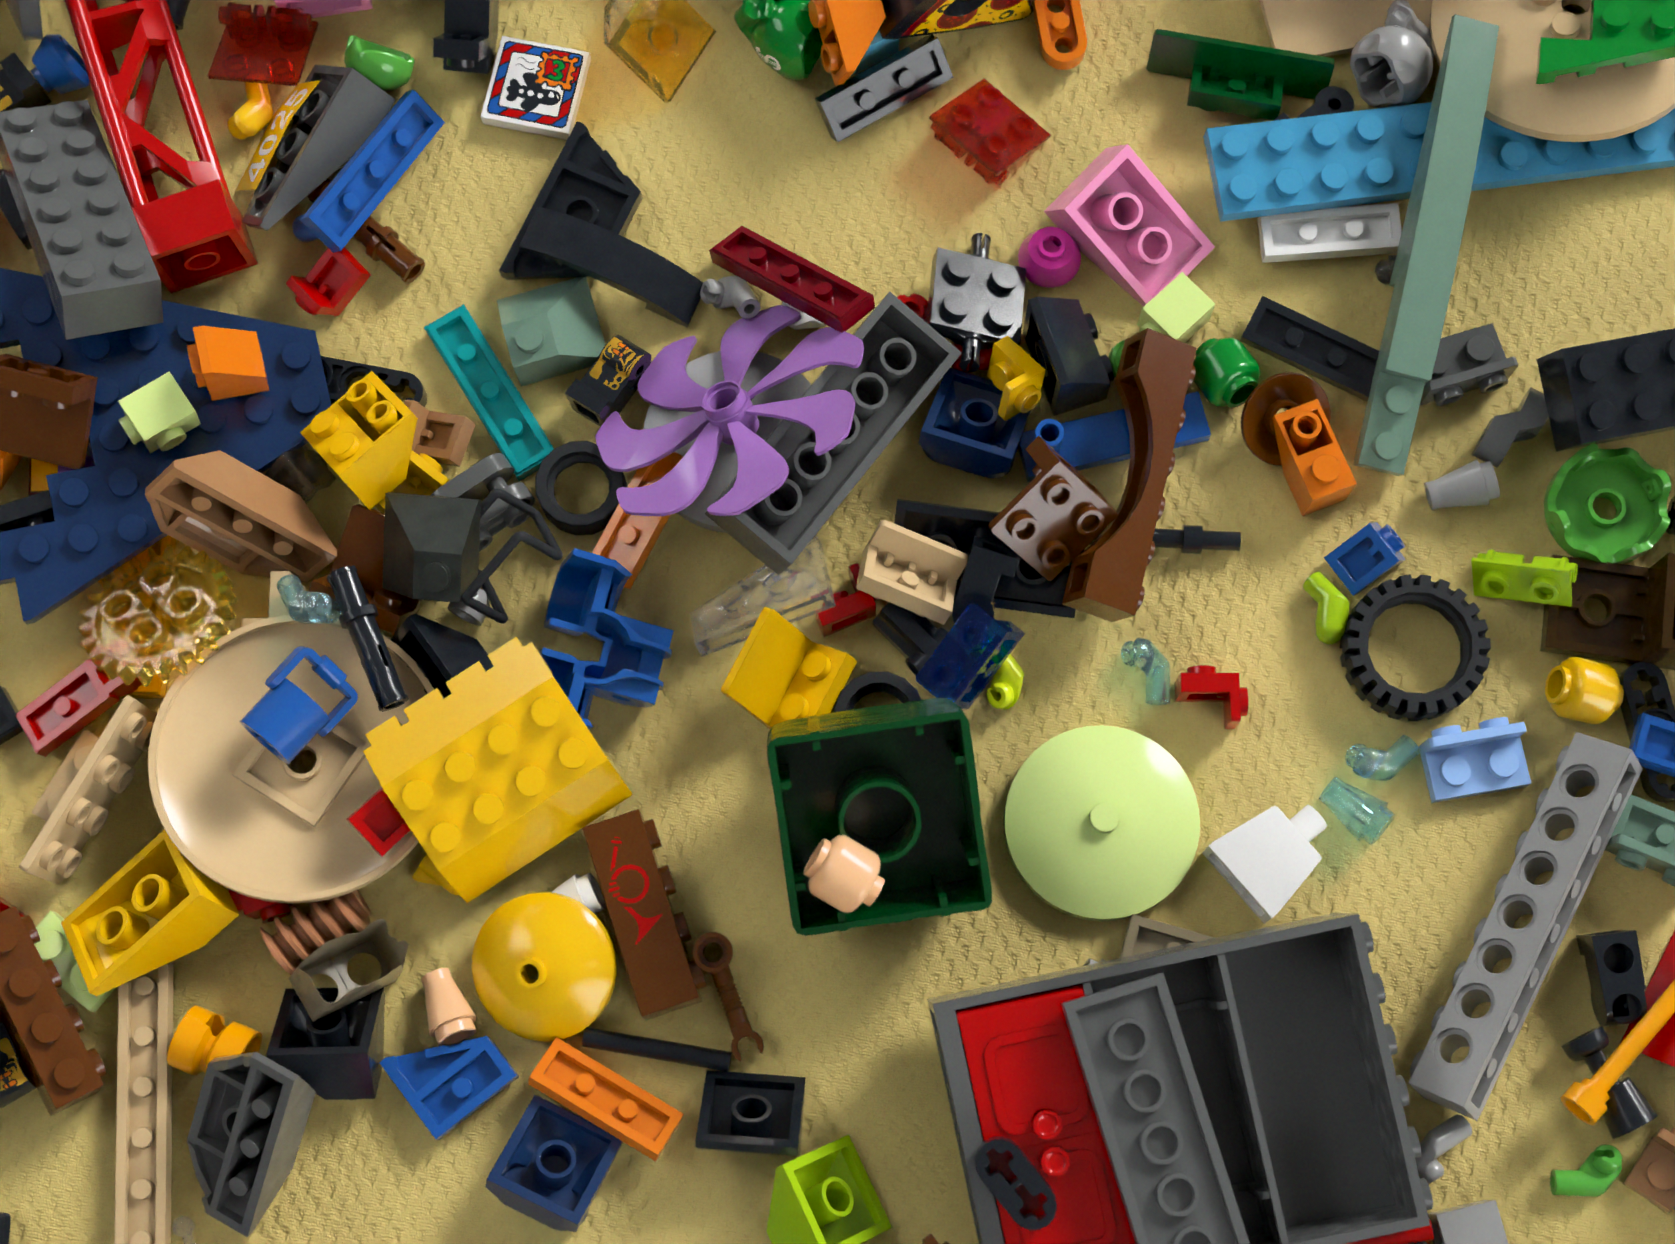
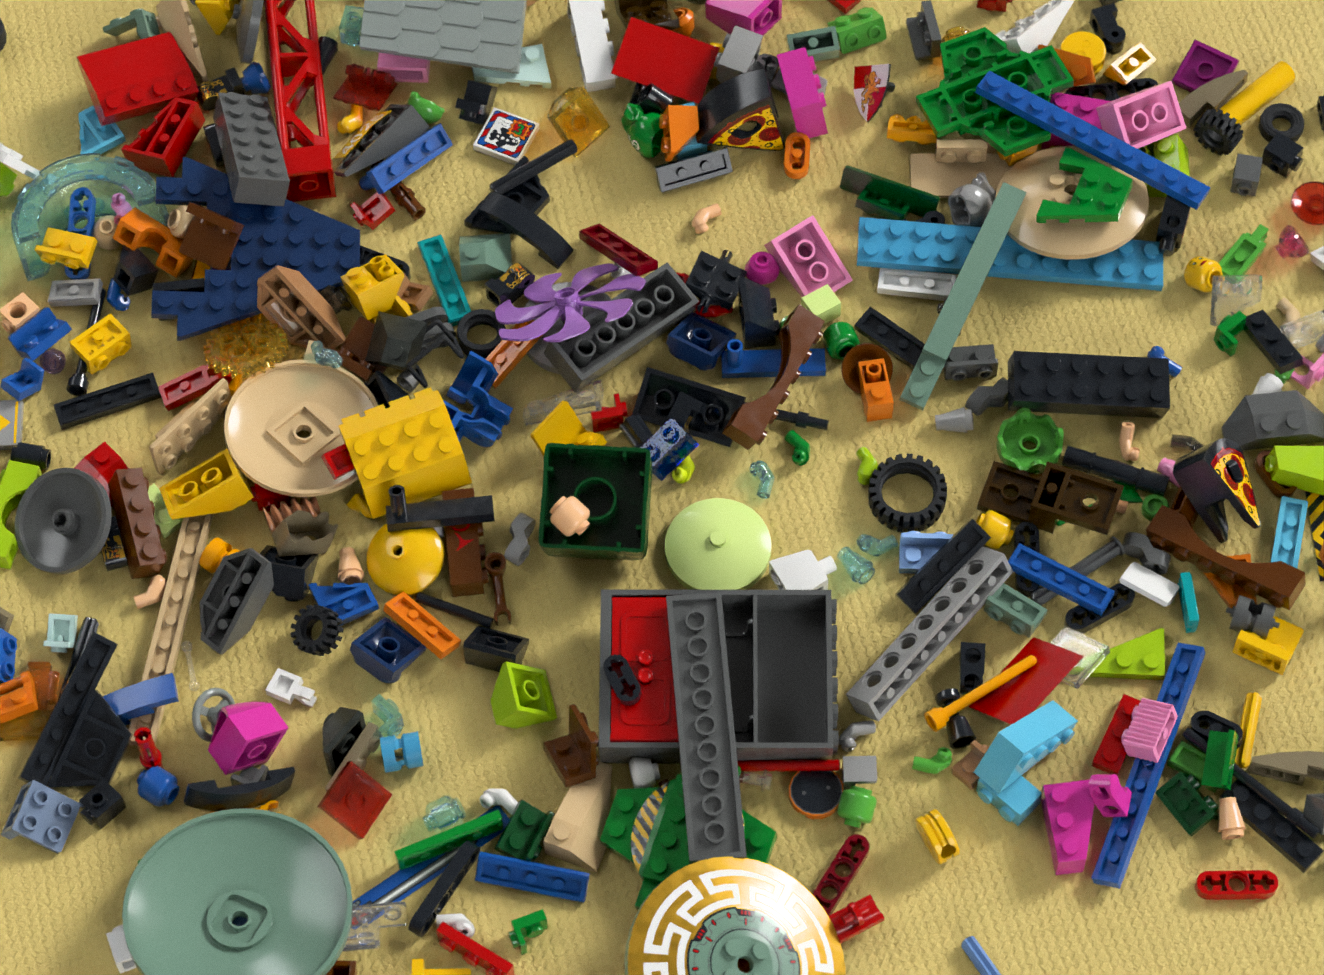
camera: 10 degrees right, 15 degrees down
(98, 1135) = (154, 593): none -> light nougat arm
(158, 414) = (271, 249): yellowish green brick -> none
(227, 362) = (312, 230): orange slope -> none
(287, 716) = (305, 400): blue piece -> none
(360, 620) = (351, 367): black pin -> none
(393, 1163) = (329, 632): none -> black tyre
(586, 880) = (435, 513): none -> black piece
(600, 143) = (534, 167): none -> black axle
(729, 293) = (584, 254): light grey arm -> none
(747, 901) = (518, 548): none -> light grey piece
(911, 571) = (645, 400): tan bracket -> none
(921, 174) = (703, 215): none -> light nougat arm
(988, 129) = (743, 201): clear red hinge -> none
(1016, 376) = (725, 320): yellow bracket -> none
(1052, 514) = (725, 385): reddish brown bracket -> none
(1203, 597) = (801, 448): none -> green arm
(1205, 685) = (793, 491): red bracket -> none
(1366, 556) = (893, 442): blue bracket -> none
(1510, 578) = (973, 468): lime hinge -> none
(1519, 786) = (942, 566): none -> black plate

